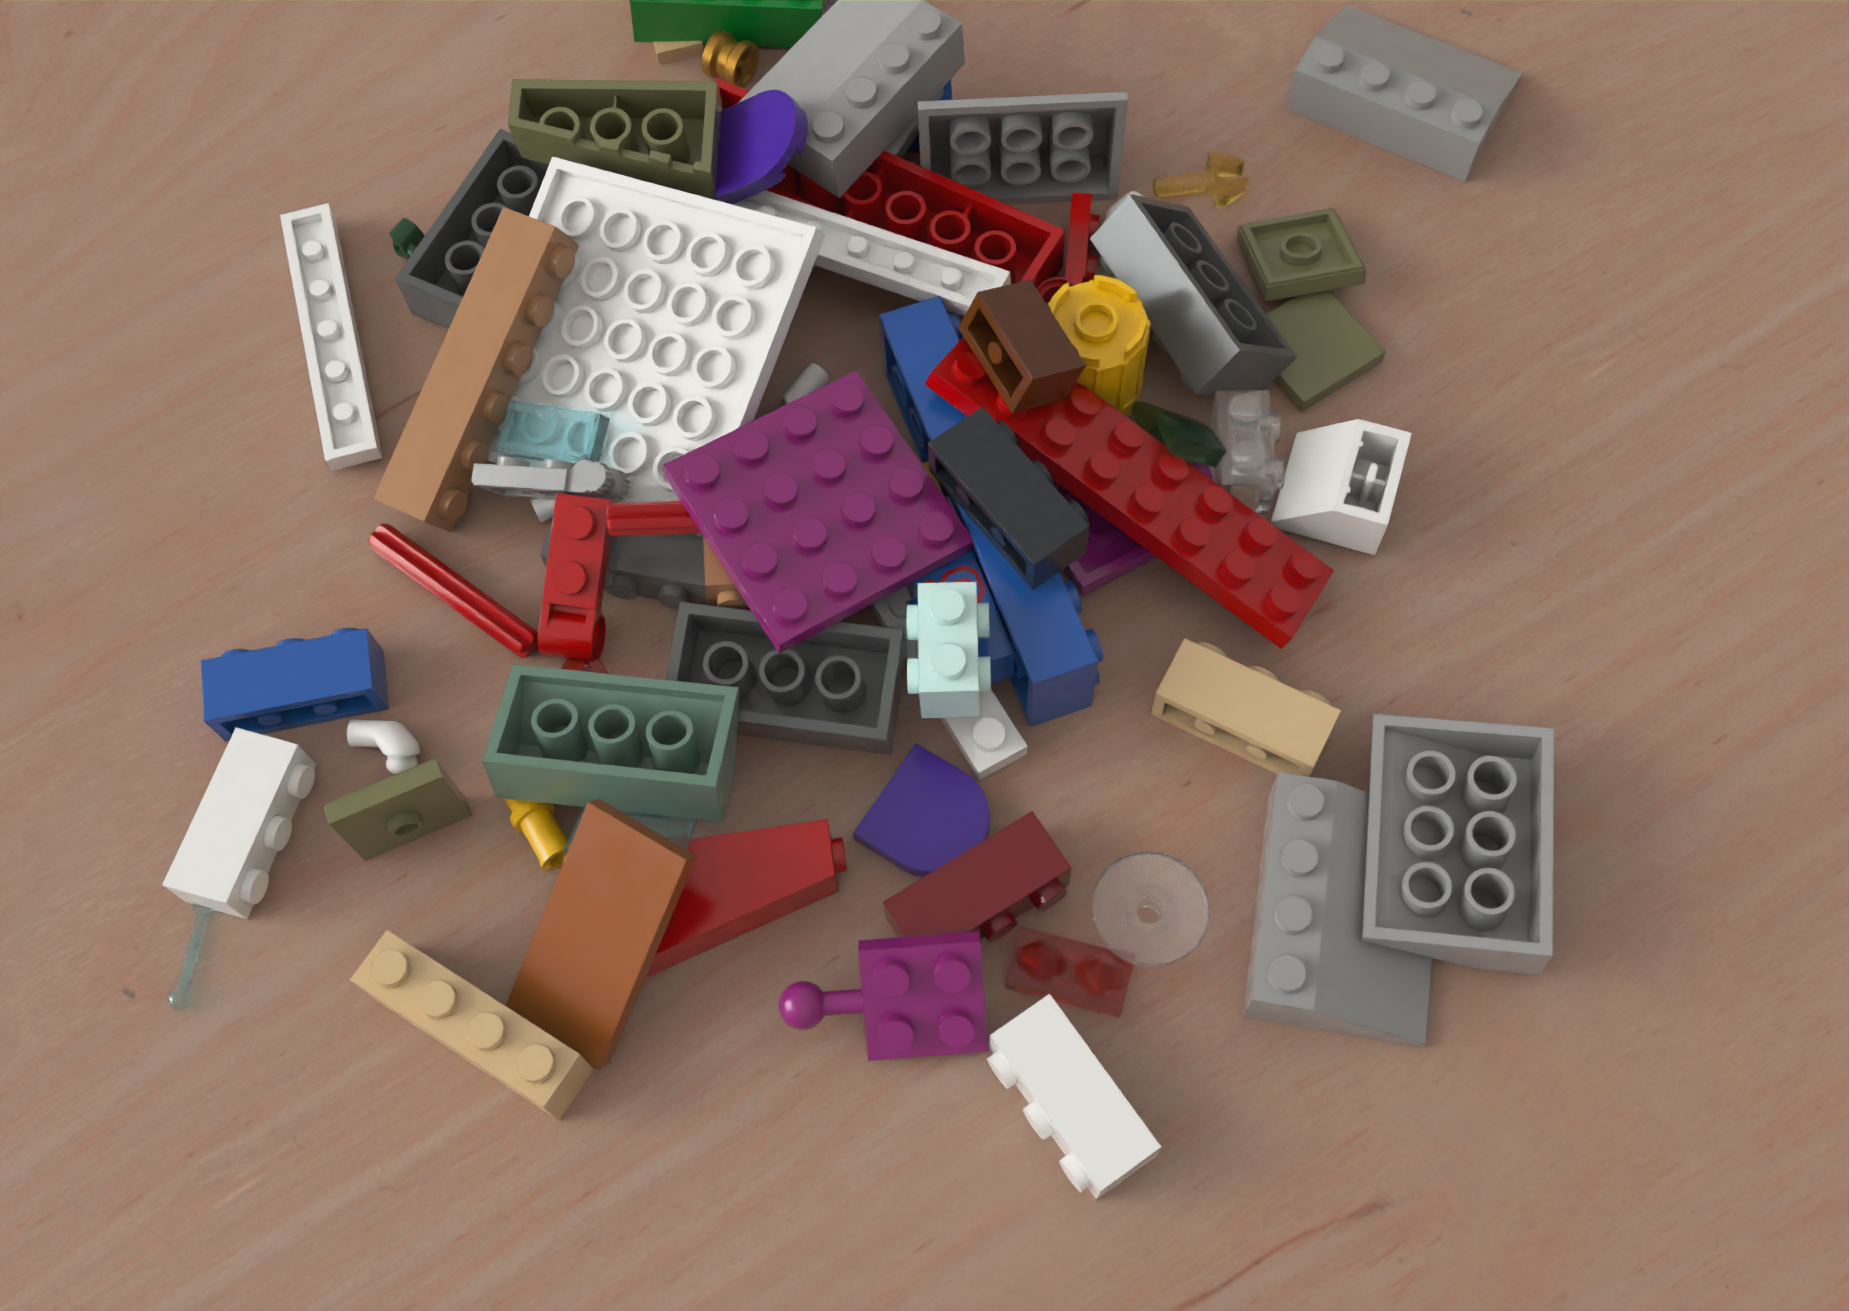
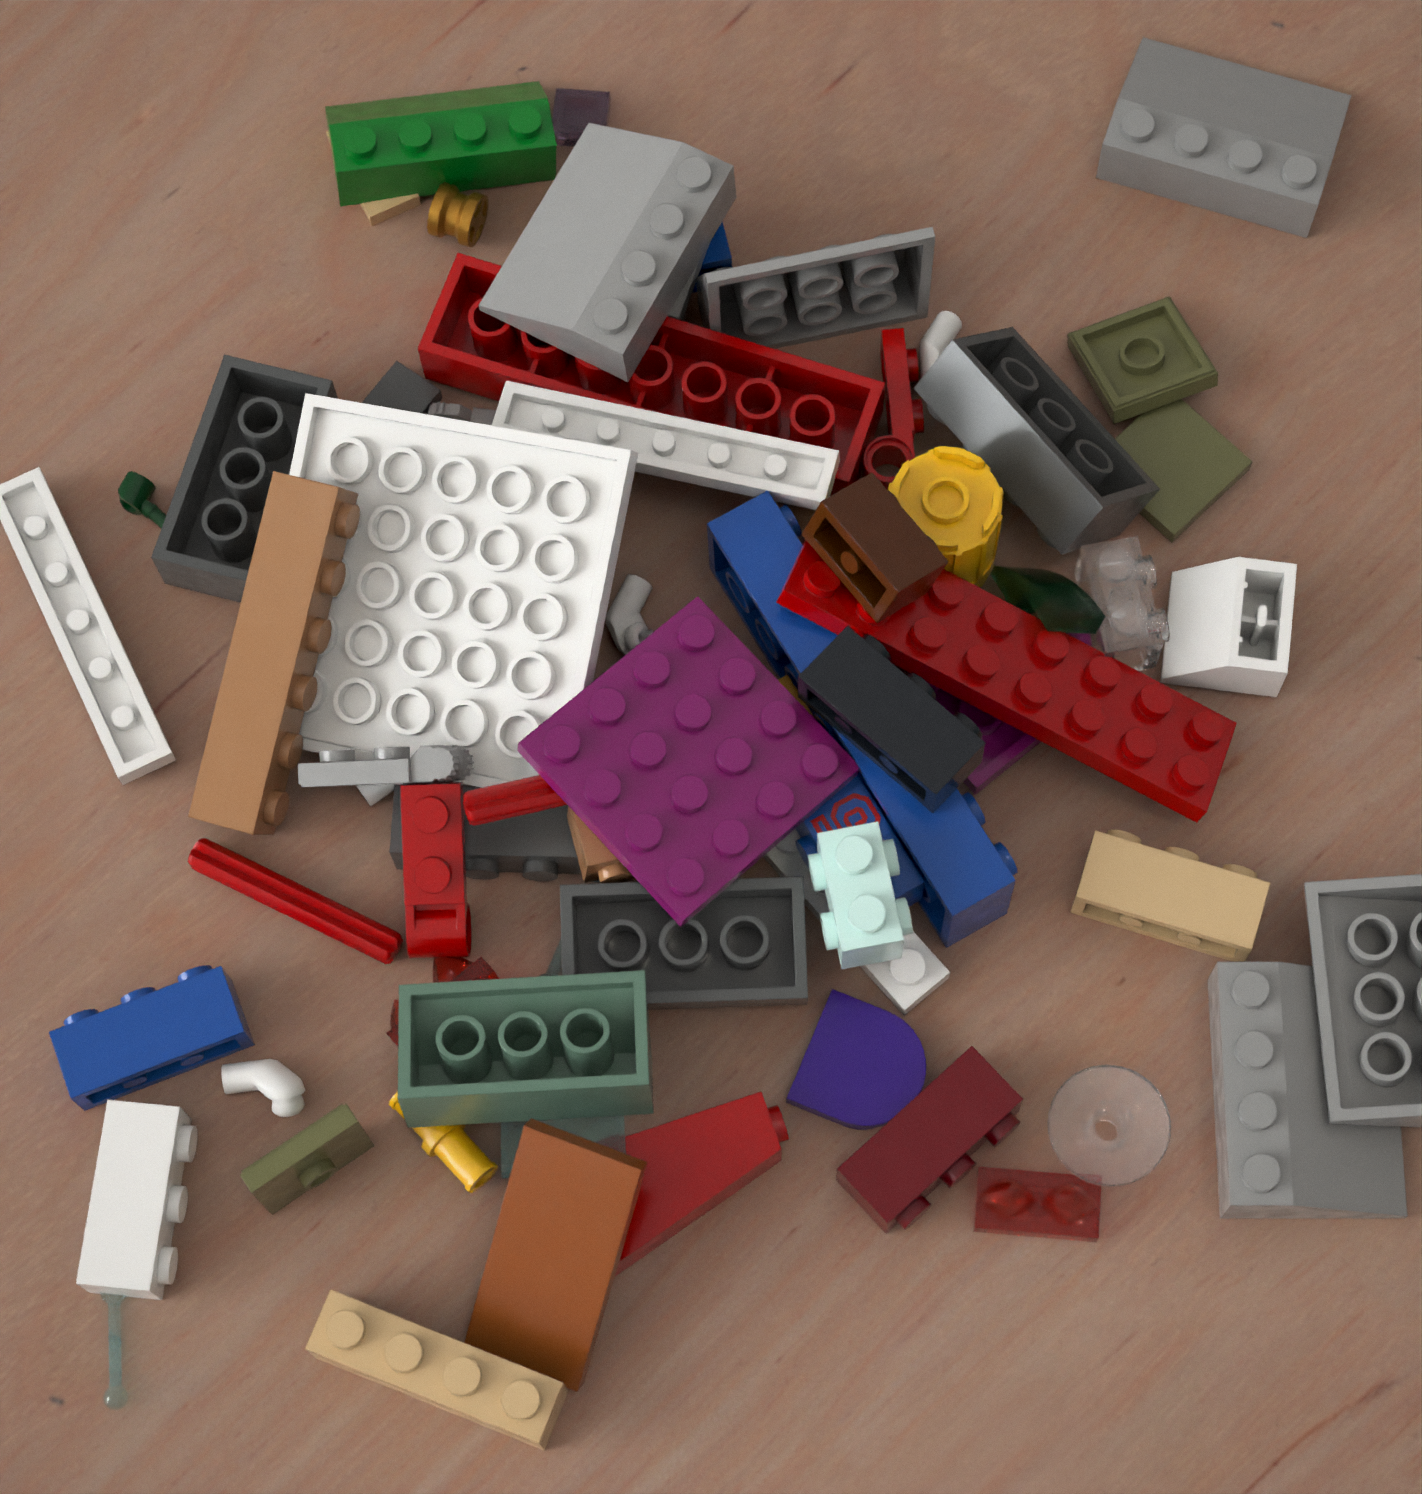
camera: 10 degrees left, 5 degrees up
(552, 433) = (373, 713): clear light blue tile -> none
(628, 128) = (378, 347): olive wedge -> none
(757, 144) = (532, 343): dark purple tile -> none
(915, 997) = (888, 1261): magenta plate -> none
(1071, 1098) = (1064, 1334): white brick -> none
(1209, 180) = (1024, 282): clear yellow bar -> none

